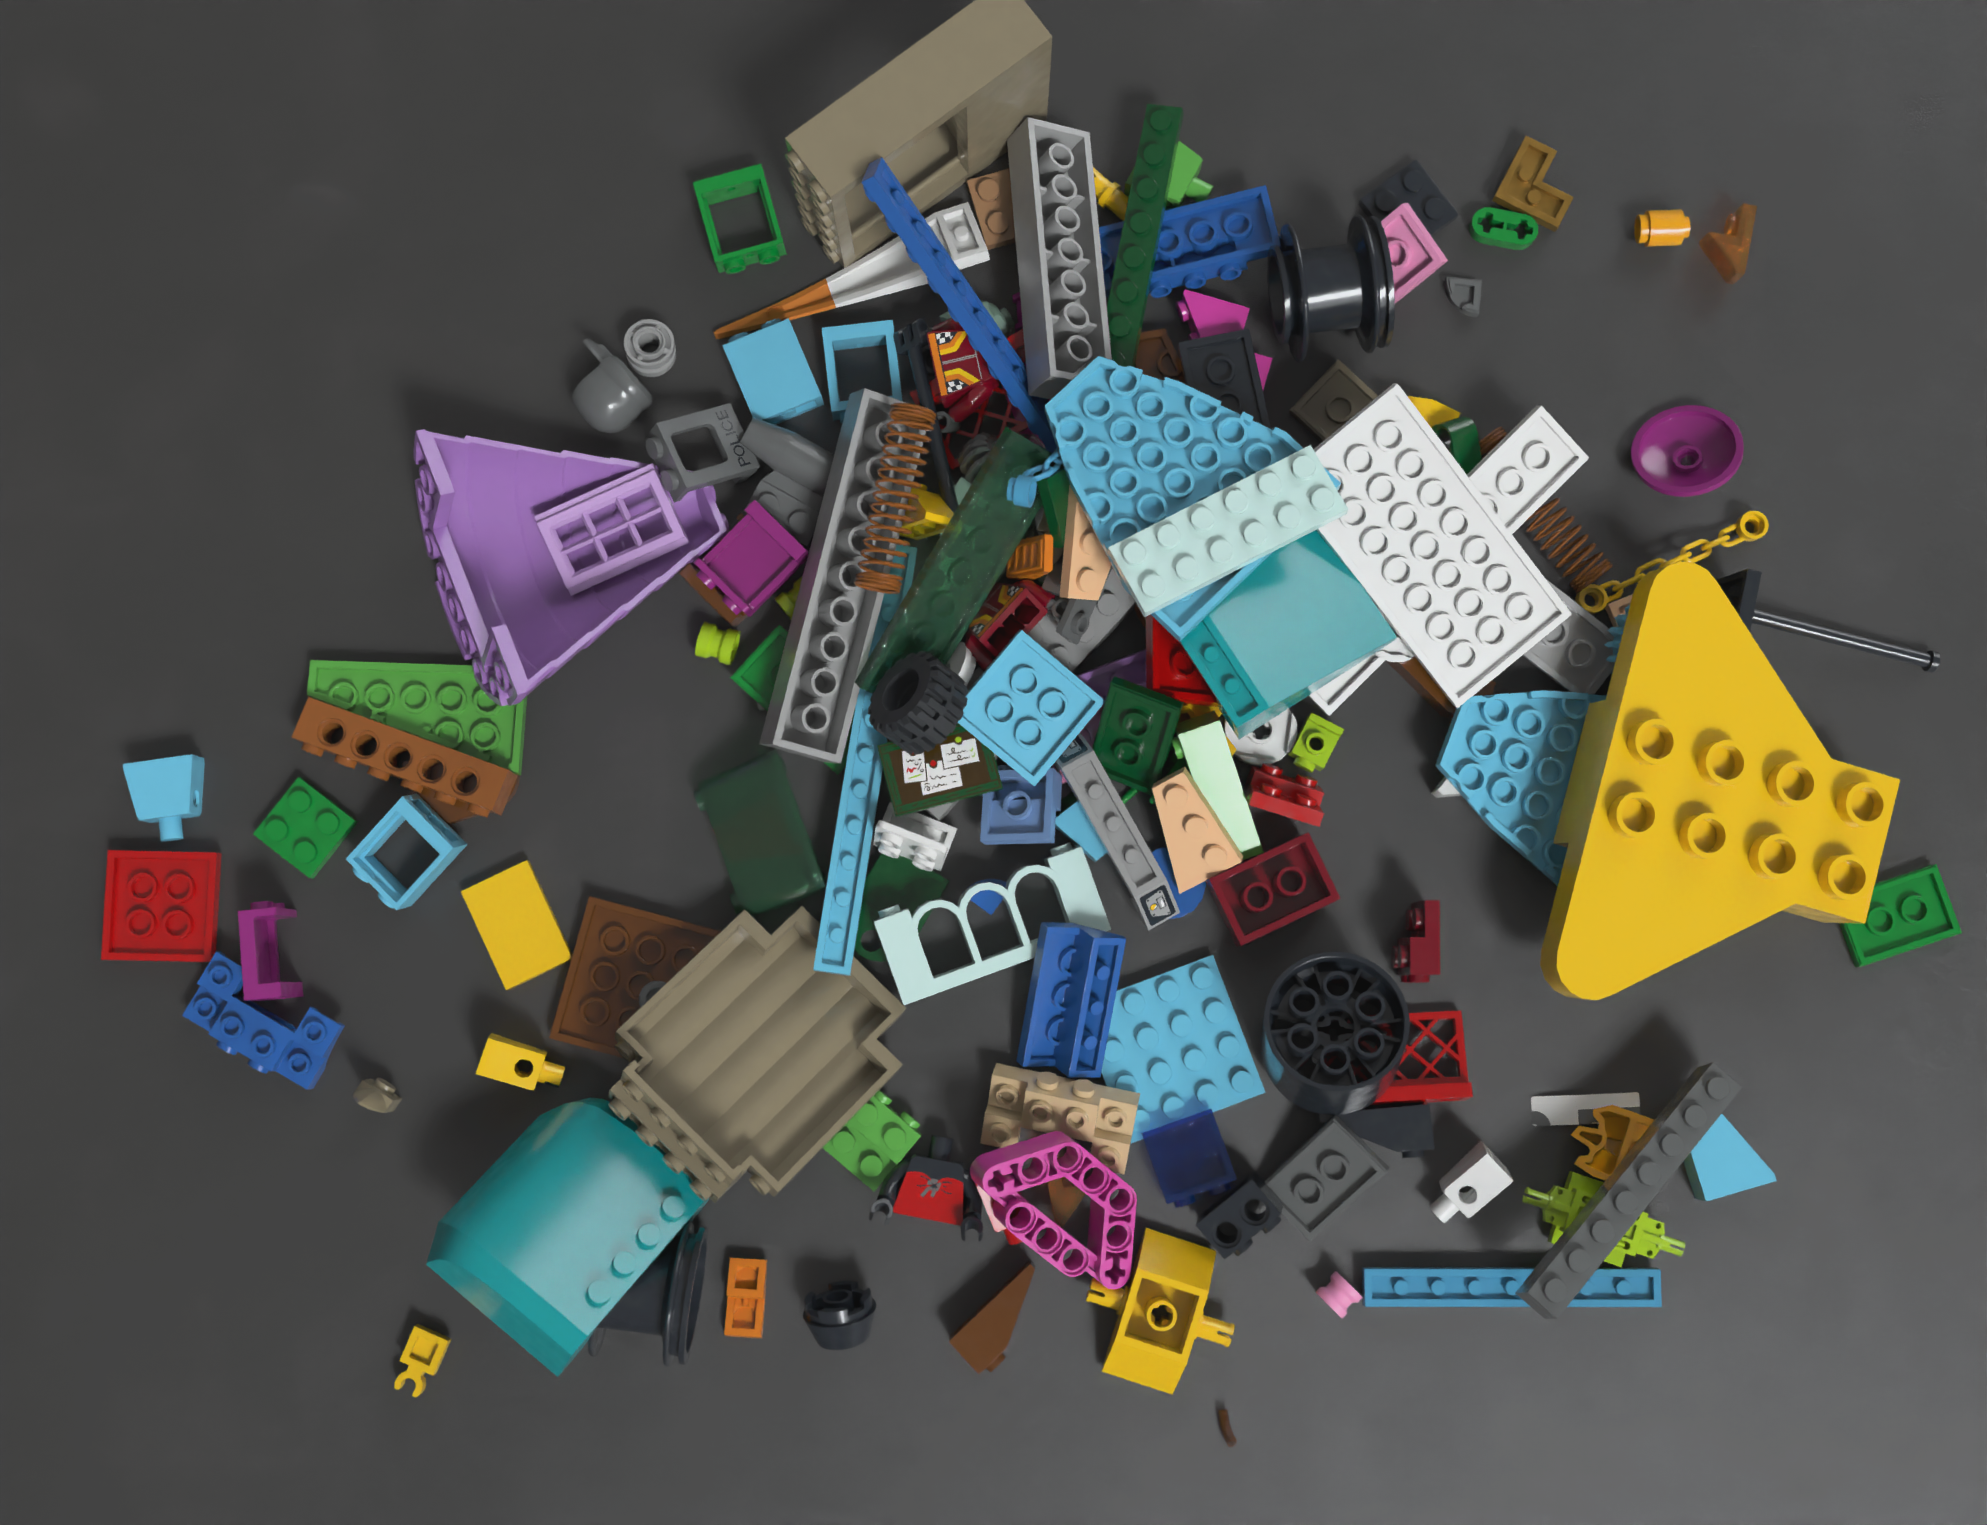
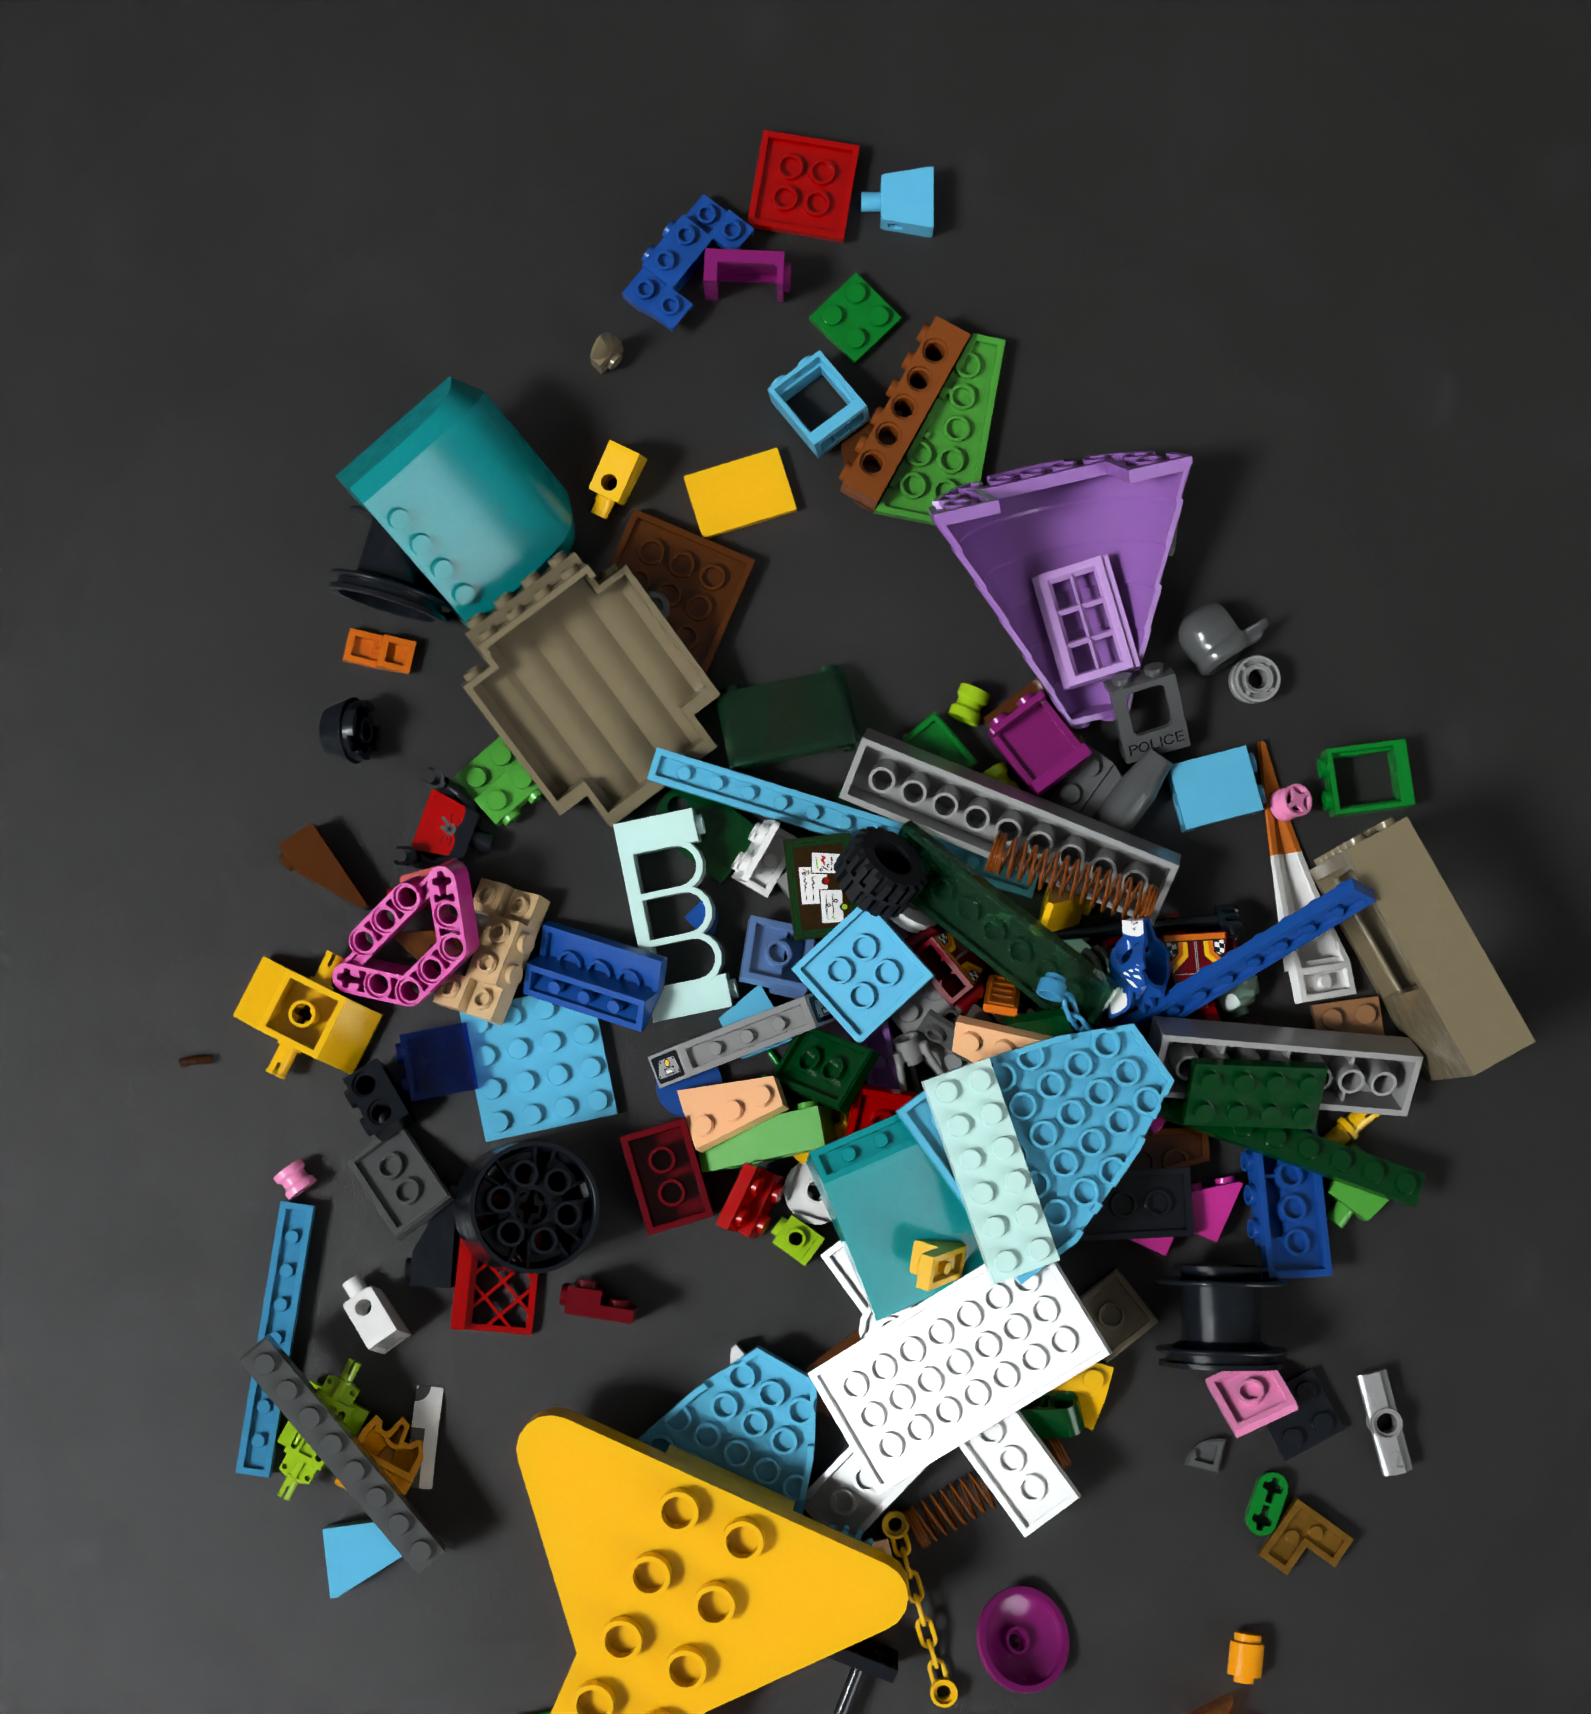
camera: 100 degrees right, 0 degrees up
(423, 1355) = (375, 366): yellow plate -> none
(776, 293) = (1299, 803): none -> bright pink wheel
(853, 337) = (1240, 872): medium azure window -> none
(979, 414) = (1139, 973): none -> blue piece
(1094, 282) = (1253, 1093): none -> dark green plate
(1105, 649) = (909, 1053): none -> light grey plant
(1329, 581) = (937, 1263): none -> yellow slope
(1421, 112) = (1389, 1444): none -> light grey piece

